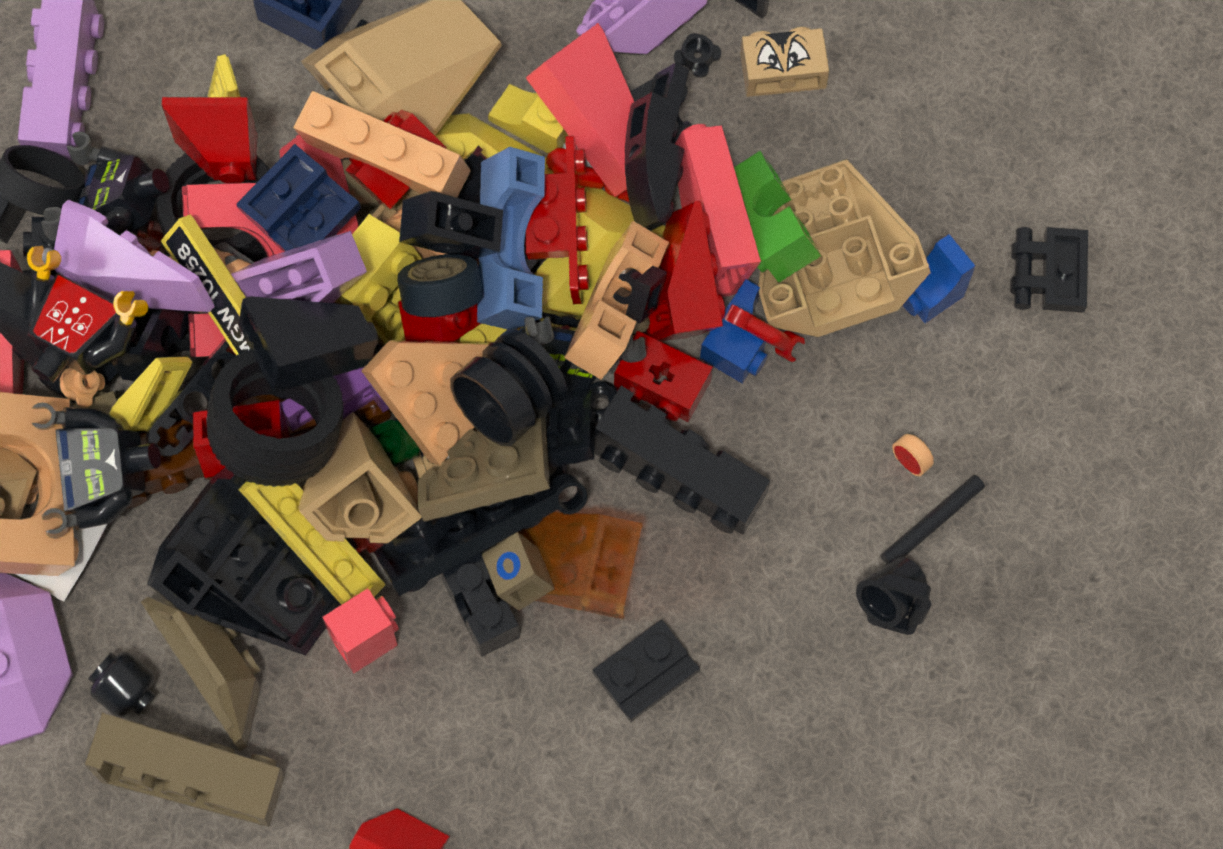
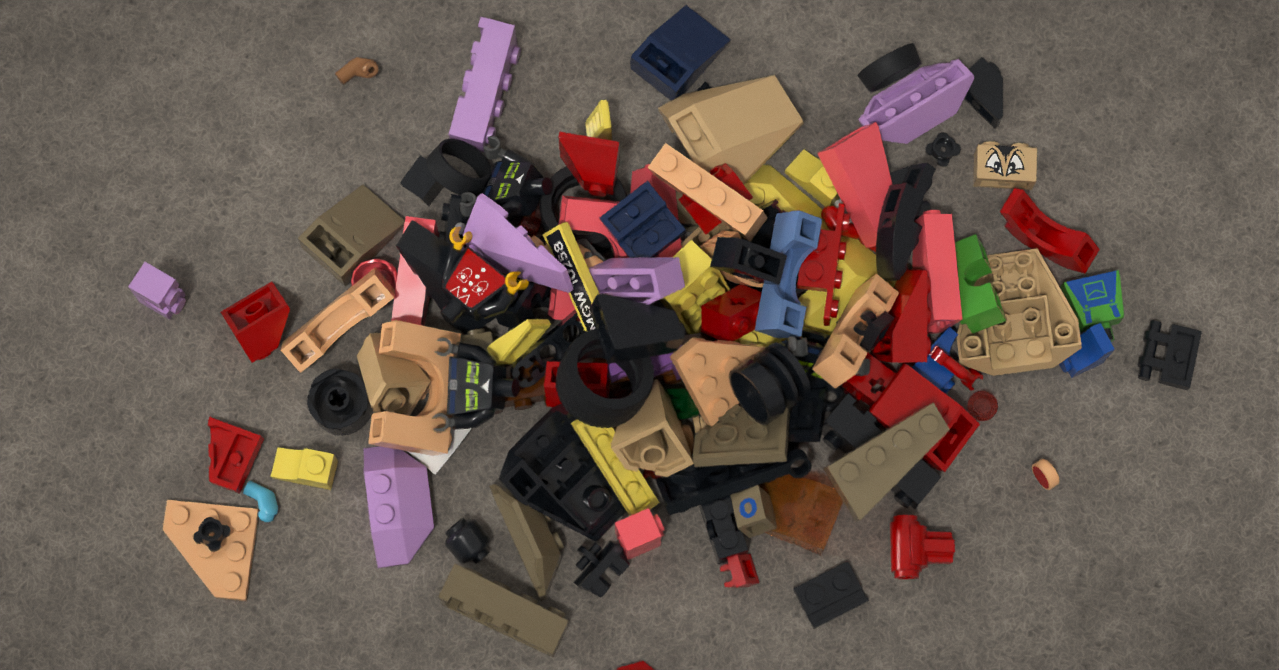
camera: 10 degrees right, 5 degrees up
(74, 389) = (469, 326): light nougat plate -> none
(327, 672) = (591, 577): none -> black hips
(440, 285) = (733, 301): black wheel -> none
(516, 658) = (742, 571): none -> red tile
(678, 472) = (881, 462): none -> dark tan wedge
(732, 404) = (910, 393): none -> red slope
(753, 584) = (916, 547): none -> red piece
(810, 379) = (982, 406): none -> clear red plate
(874, 149) = (1054, 241): none -> red arch
(892, 592) = (1014, 571): black piece -> none
(934, 519) = (1050, 523): black bar -> none
(939, 209) = (1096, 300): none -> torso

